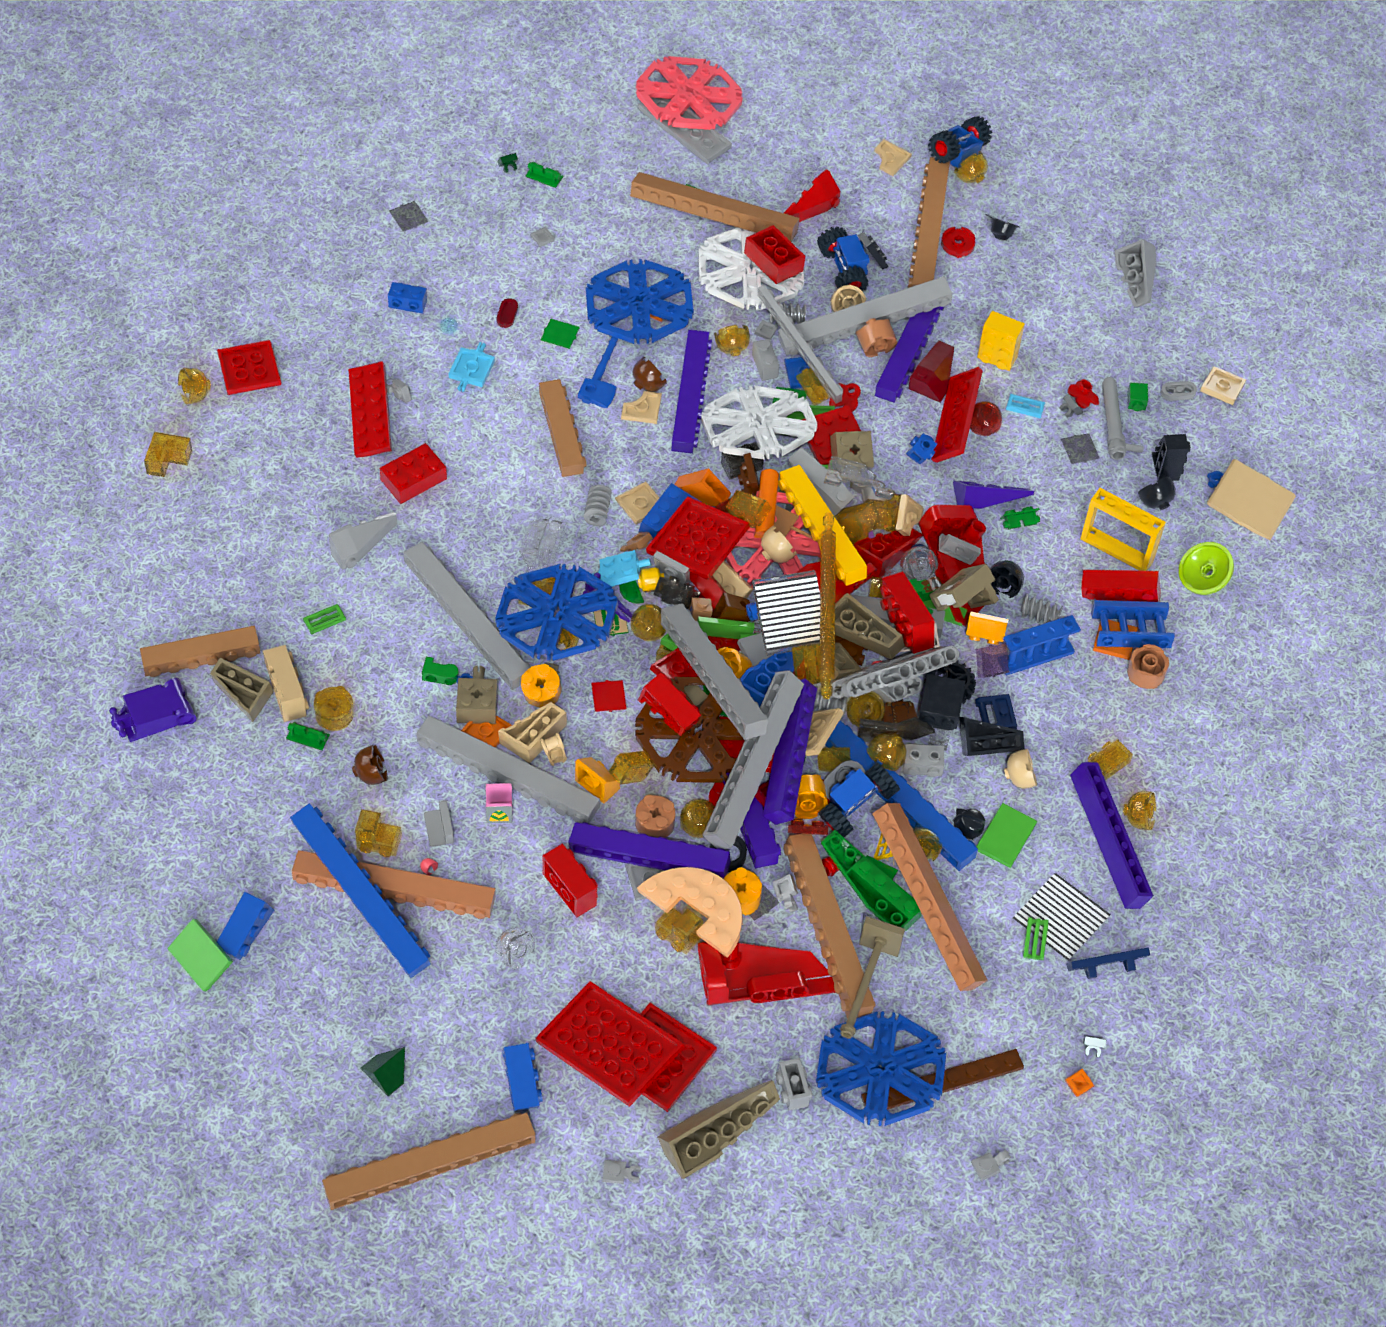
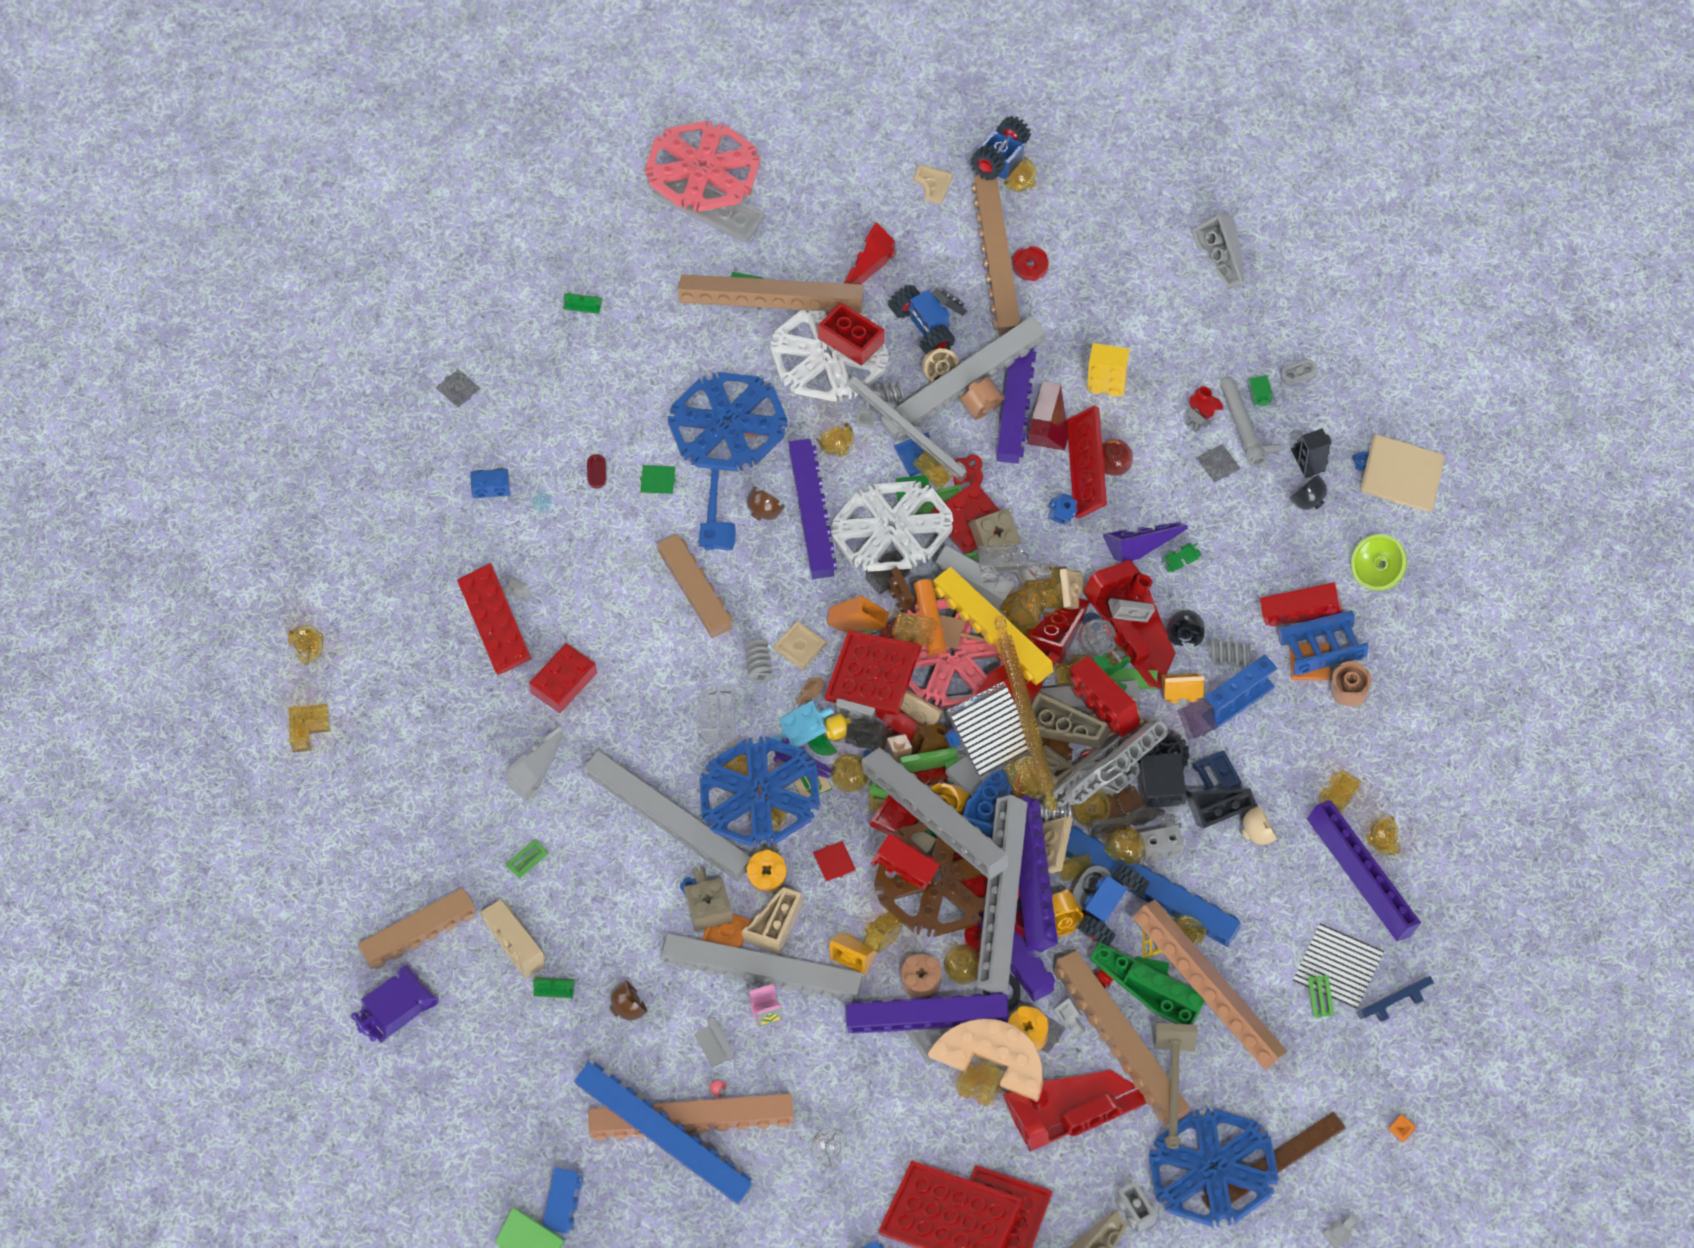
camera: 10 degrees left, 5 degrees up
(242, 687) = (473, 955): dark tan wedge -> none
(248, 367) = (354, 606): red plate -> none
(333, 708) = (561, 949): clear yellow brick -> none
(376, 836) = (659, 1072): clear yellow brick -> none
(439, 673) = (661, 885): green leg -> none
(471, 367) = (581, 542): medium azure plate -> none
(508, 160) = (540, 297): dark green tile -> none
(542, 237) = (604, 374): light grey tile -> none
(554, 749) = (801, 934): tan piece -> none
(570, 880) = (861, 1064): red brick -> none
(644, 409) = (770, 540): tan tile -> none
(663, 510) = (829, 649): blue wedge -> none
(765, 359) = (876, 452): light grey brick -> none
(776, 546) = (954, 661): tan cylinder -> none
(801, 827) = (1067, 948): clear red plate -> none
(969, 586) = (1152, 651): dark tan brick -> none
(970, 822) = (1224, 895): black piece -> none
(1001, 229) = (1069, 236): black piece -> none
(1006, 835) = (1263, 898): bright green tile -> none
(1025, 408) = (1151, 434): medium azure tile -> none
(1094, 1042) = (1403, 1084): tile -> none
(1130, 515) = (1291, 534): yellow window -> none
(1223, 385) = (1341, 353): tan plate -> none

